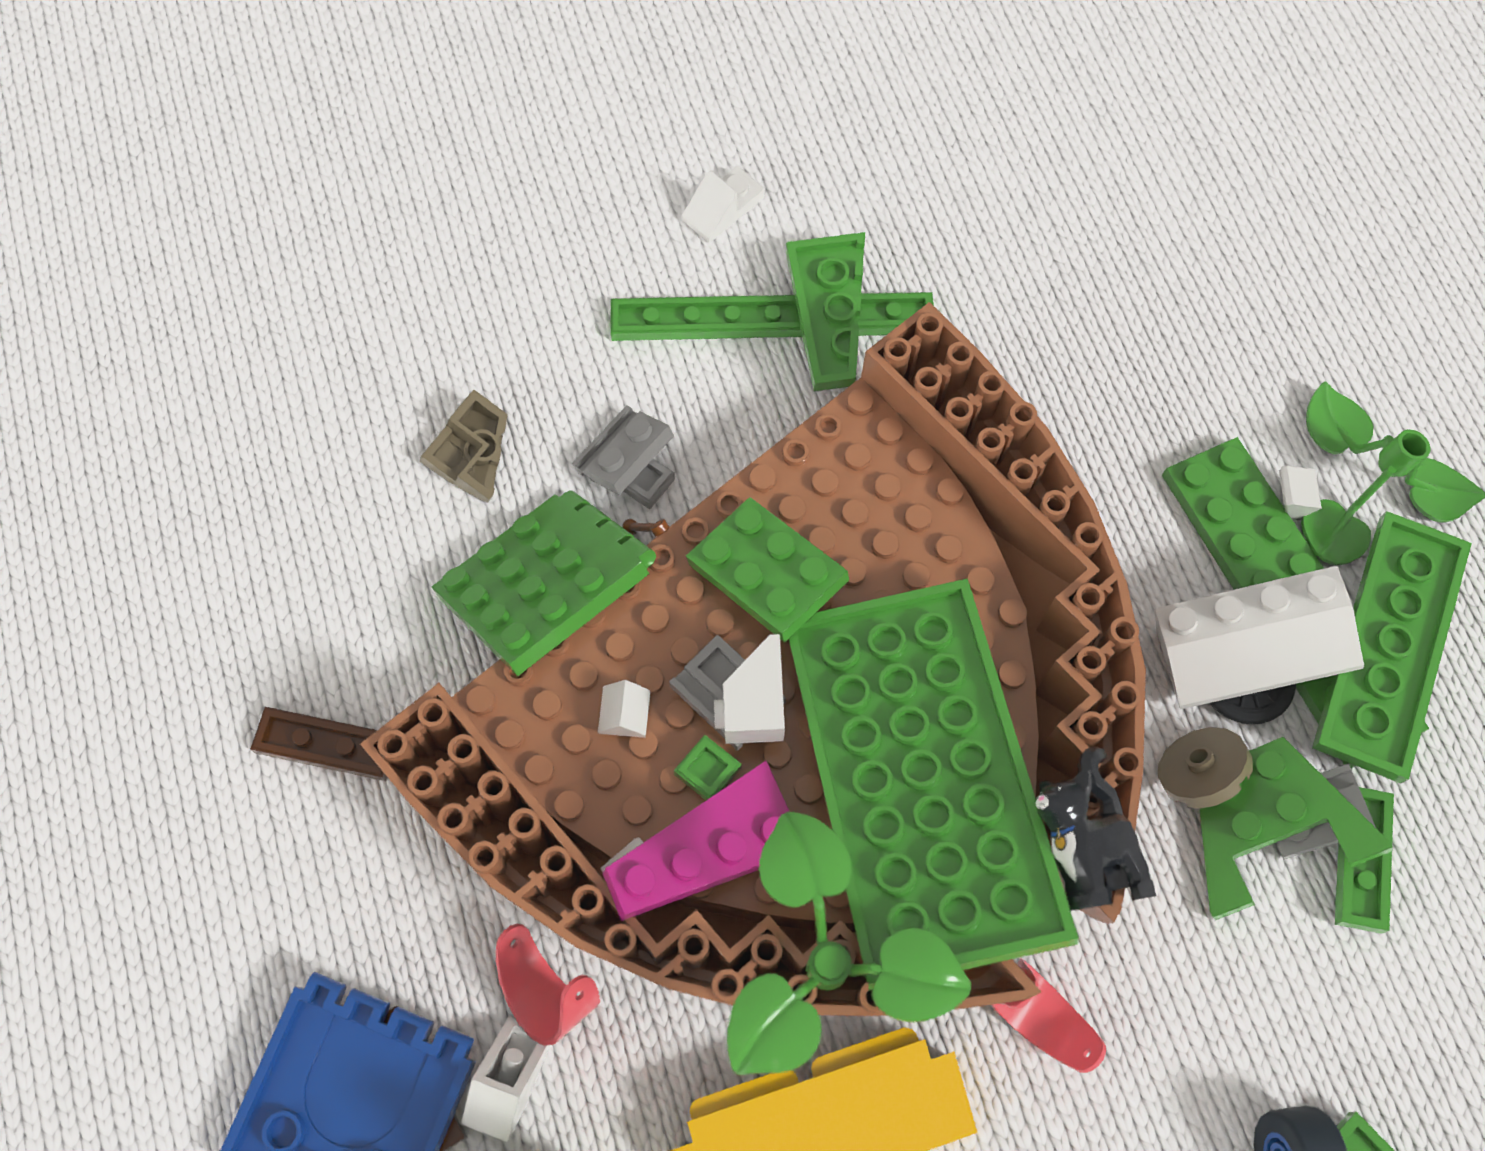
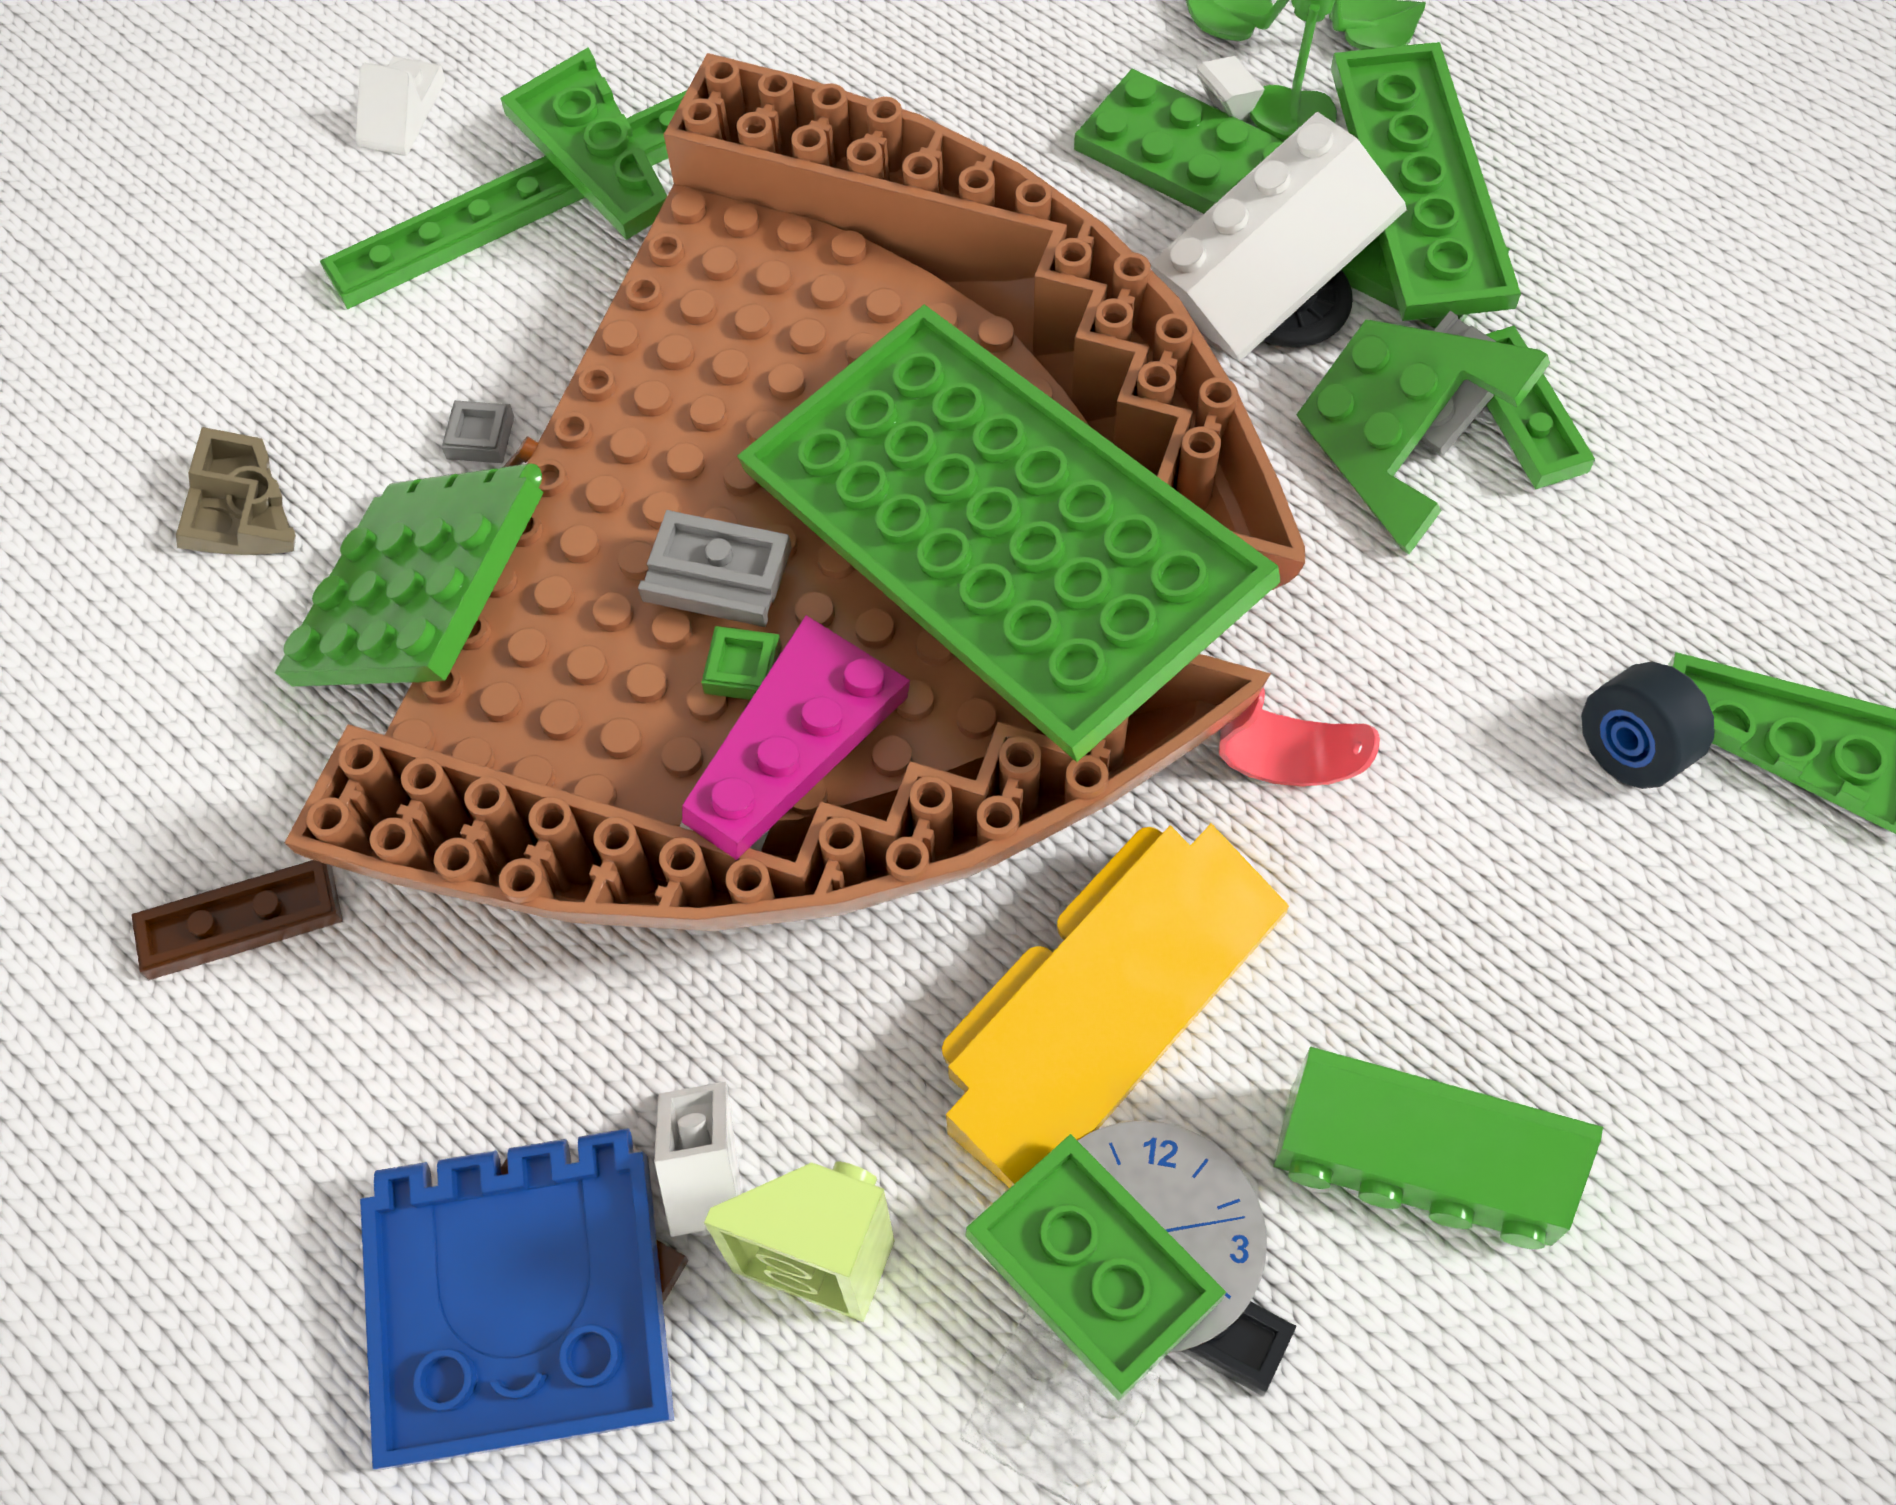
camera: 25 degrees left, 5 degrees down
(535, 993) = (676, 1049): coral piece -> none
(623, 449) = (431, 408): light grey plate -> none
(624, 709) = (600, 651): white slope -> none
(754, 698) = (753, 544): white slope -> none
(767, 568) = (684, 415): bright green plate -> none
(771, 1024) = (1000, 823): bright green plant -> none
(1096, 852) = (1239, 482): black animal -> none
(1205, 767) = (1303, 397): dark tan plate -> none

